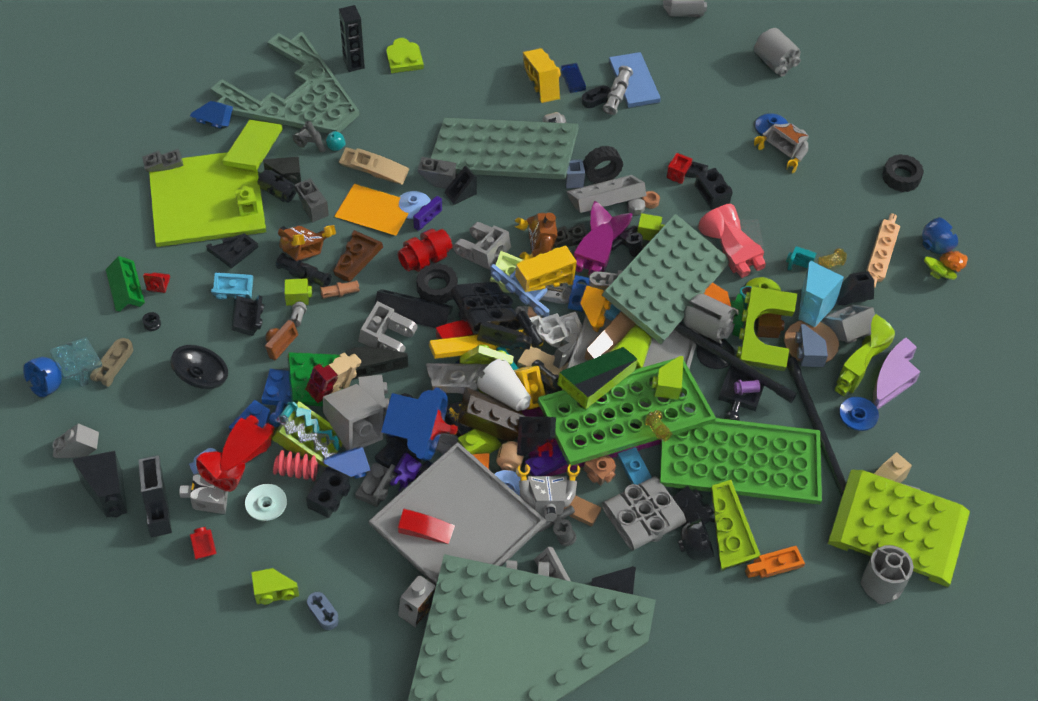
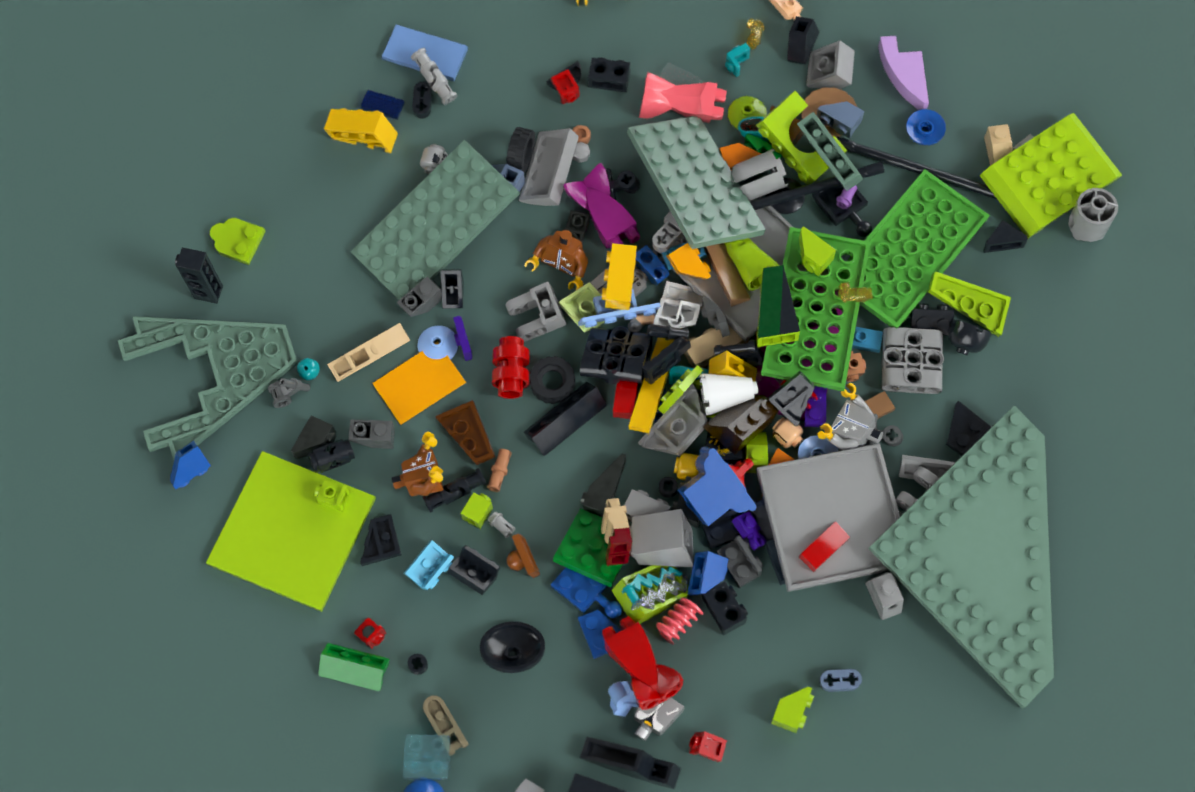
camera: 50 degrees left, 15 degrees up
(158, 162) = (218, 547): dark grey slope -> none
(252, 145) = (258, 449): lime tile -> none
(264, 495) = (708, 660): light aqua dish -> none
(377, 323) = (569, 462): light grey brick -> none
(649, 226) = (616, 157): lime brick -> none
(767, 346) = (830, 151): none -> sand green brick
(775, 563) = (1022, 290): orange hinge -> none
(809, 522) = (1005, 238): none -> black slope
(818, 293) = (791, 71): medium azure slope -> none
(855, 367) = (885, 99): lime hips -> none

